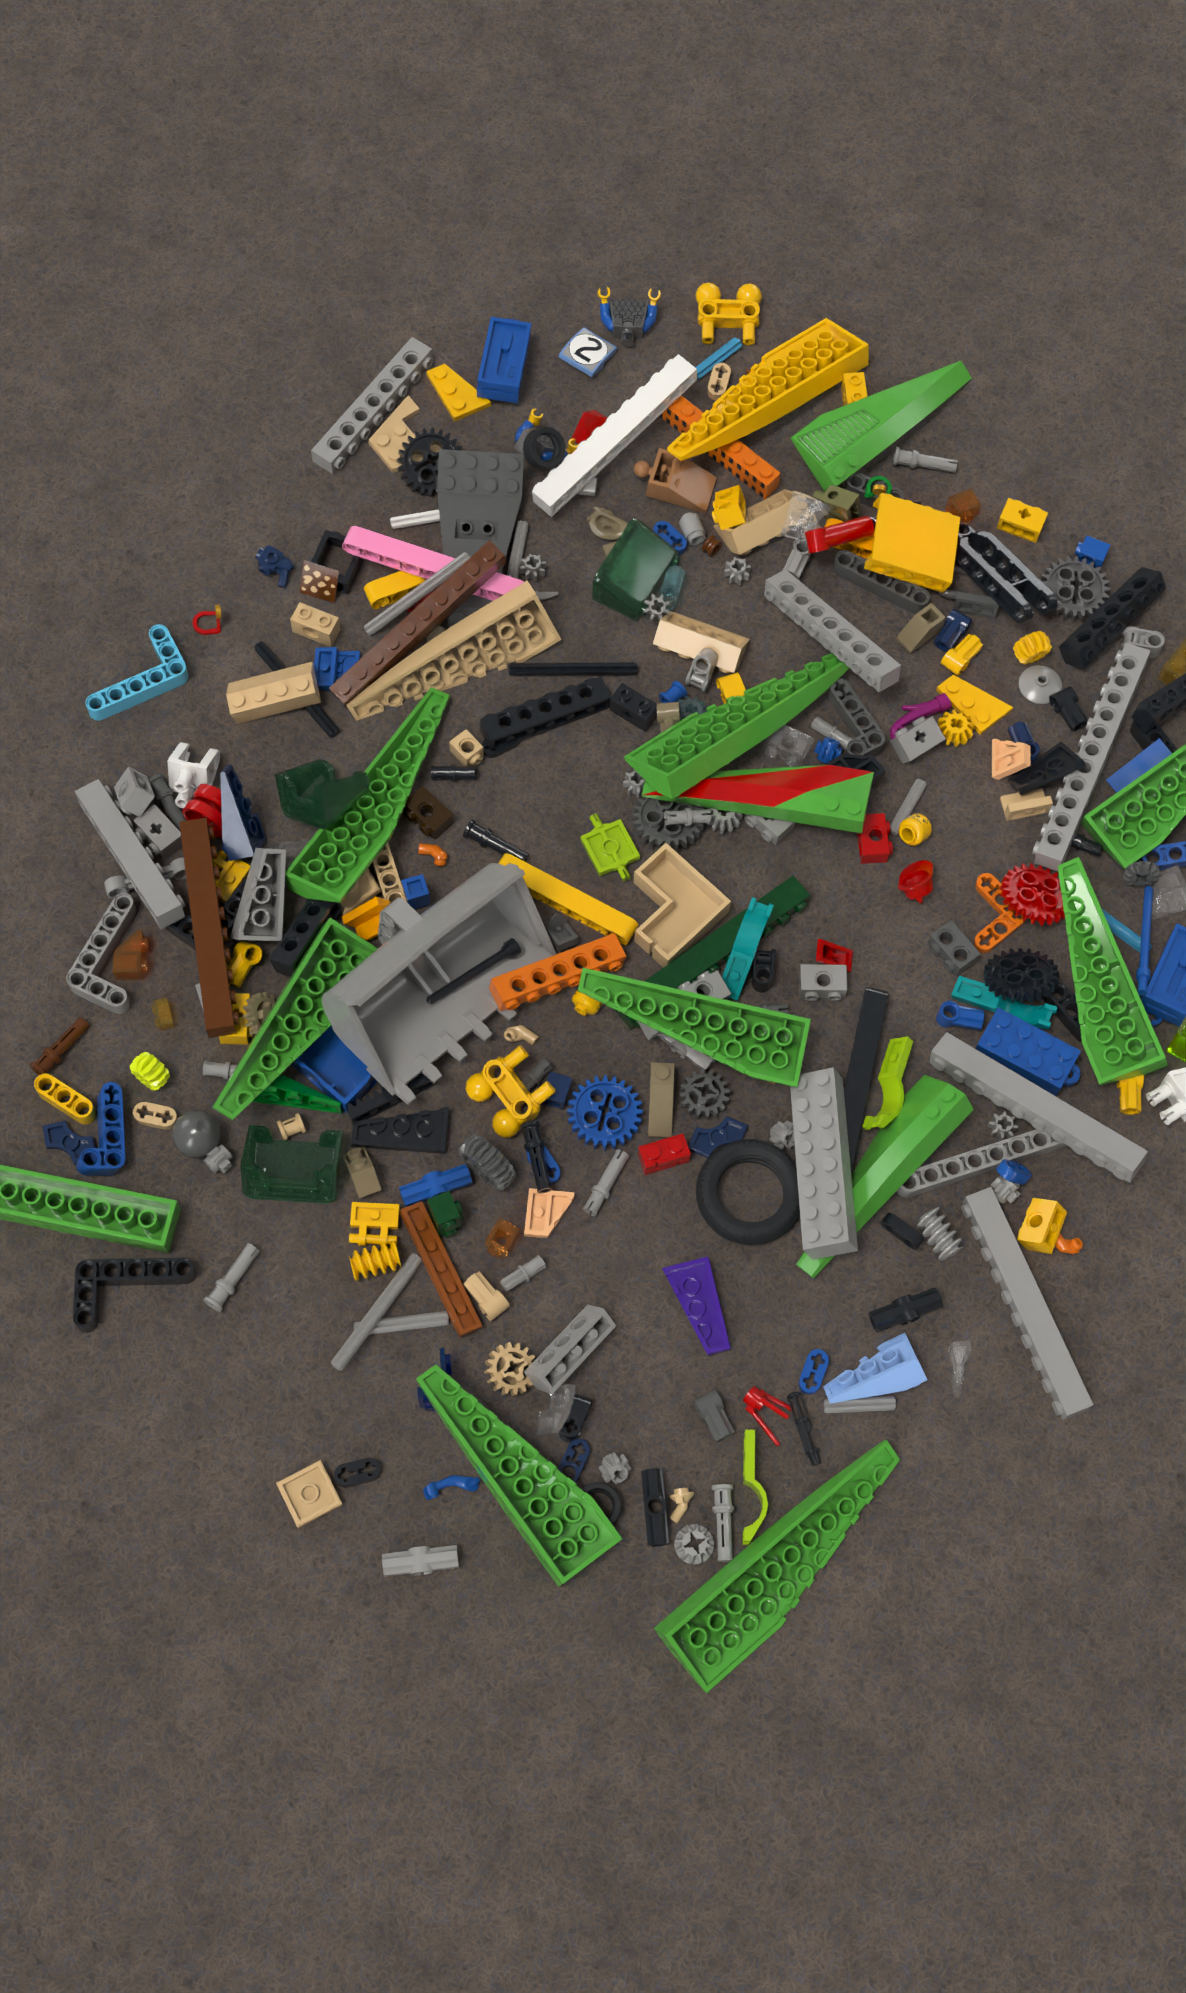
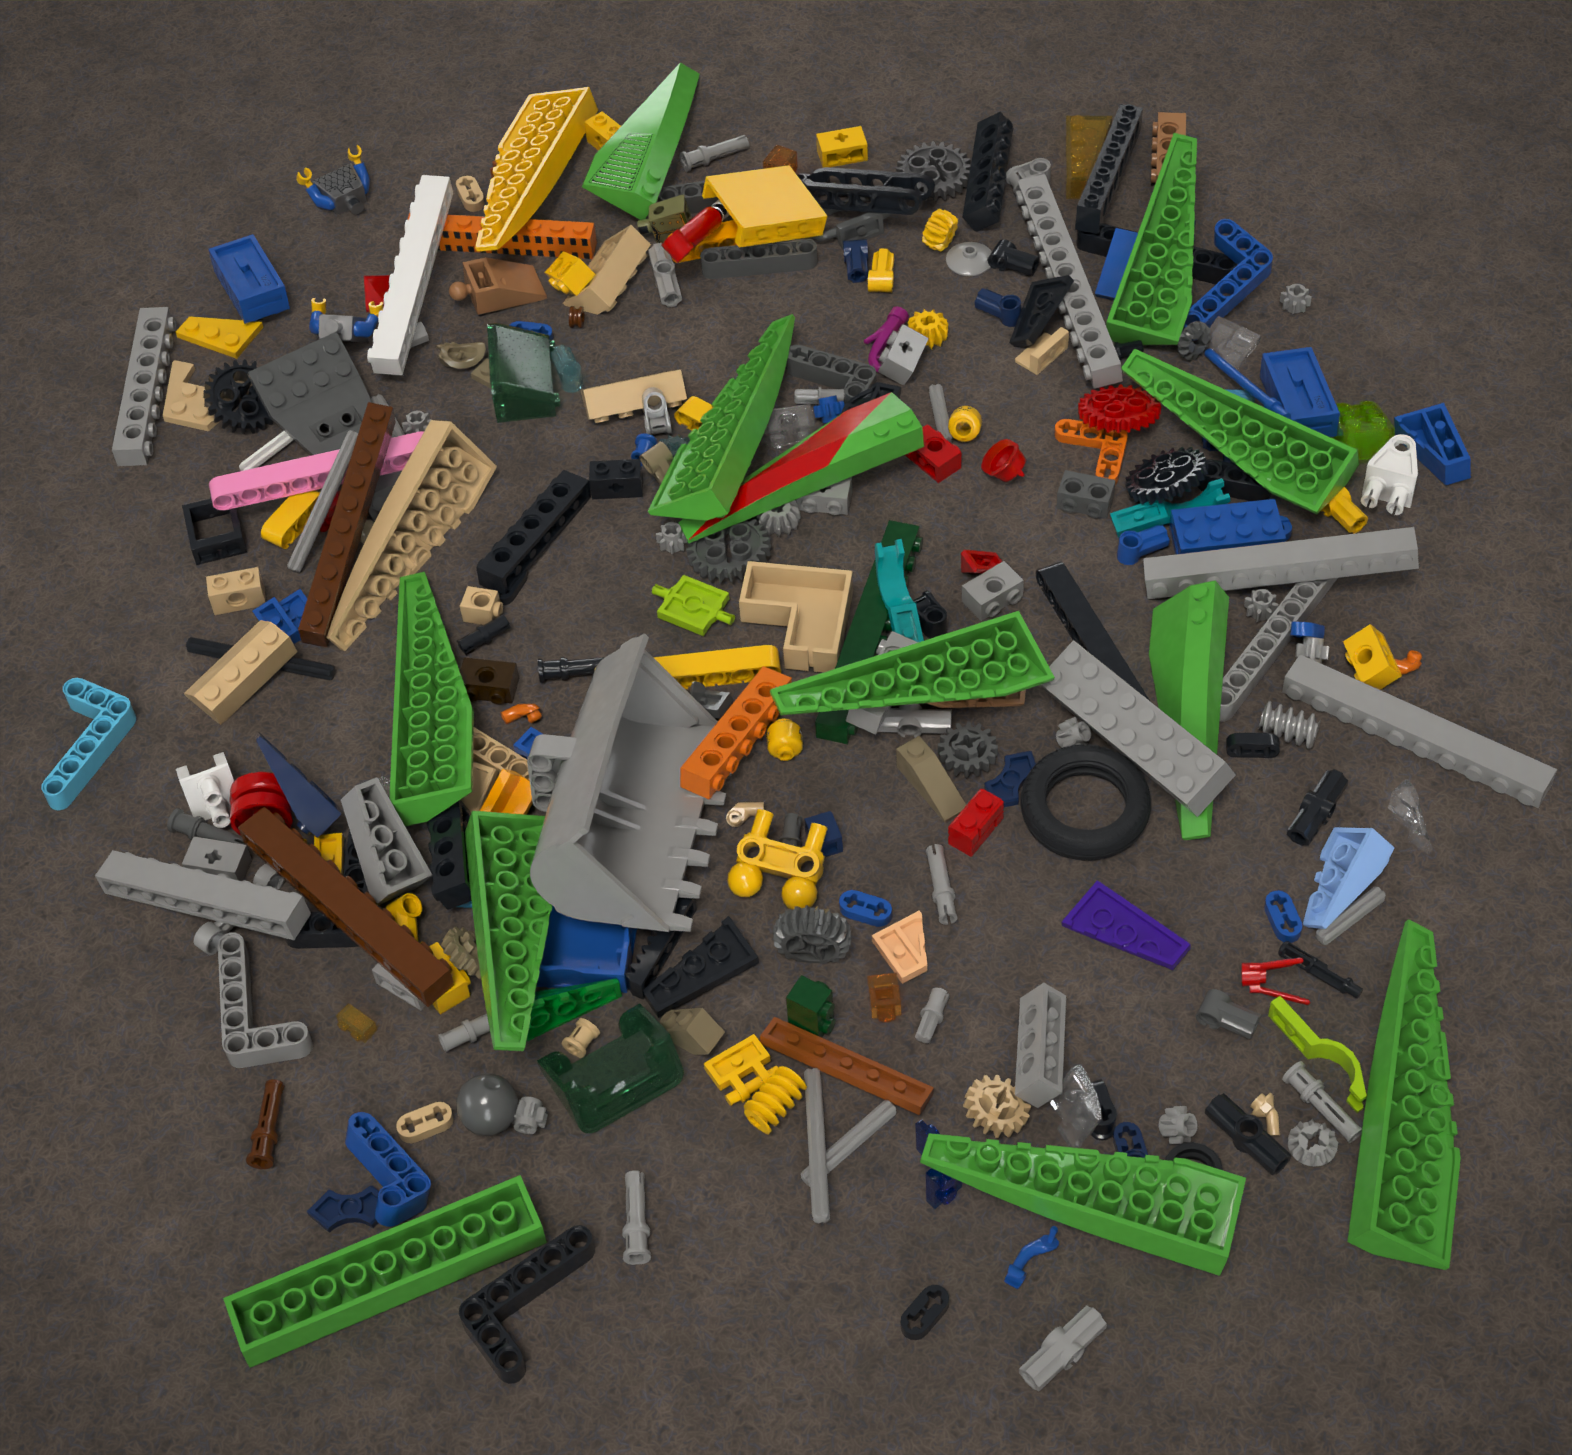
camera: 30 degrees left, 15 degrees down
(58, 1091) = (301, 1160): yellow beam -> none
(129, 958) = (279, 994): clear orange slope -> none
(134, 792) = (162, 838): light grey brick -> none
(149, 1071) = (387, 1080): neon yellow gear -> none
(207, 613) = (125, 638): red piece -> none
(271, 561) = (145, 563): dark blue piece -> none
(309, 1494) = (893, 1367): tan plate -> none
(315, 797) = (353, 733): clear green windscreen -> none
(319, 581) = (210, 552): reddish brown sticker -> none
(435, 1184) = (772, 994): blue piece -> none
(488, 1299) = (920, 1061): tan piece -> none
(509, 949) = (672, 742): black piece -> none
(534, 1146) = (846, 893): black pin -> none
(558, 450) = (344, 324): black tyre -> none
(587, 352) = (324, 236): slope -> none
(621, 668) = (527, 485): black axle -> none
(625, 1117) = (863, 832): blue gear -> none
(659, 601) = (572, 380): light grey gear -> none
(687, 817) = (749, 529): light grey pin -> none
(692, 528) = (546, 313): light grey brick -> none
(718, 357) = (456, 168): dark azure axle -> none
(728, 312) = (442, 133): yellow piece -> none
(737, 570) = (618, 322): light grey gear -> none
(803, 515) = (644, 241): clear slope -> none
(832, 630) = (752, 310): light grey brick -> none
(877, 489) = (697, 181): green piece -> none
(890, 1080) = (1130, 631): lime piece -> none
(921, 628) = (828, 270): dark tan slope -> none
(981, 706) = (942, 300): yellow wing -> none
(1009, 758) = (997, 320): light nougat wing -> none
(1092, 550) = (925, 133): blue brick -> none

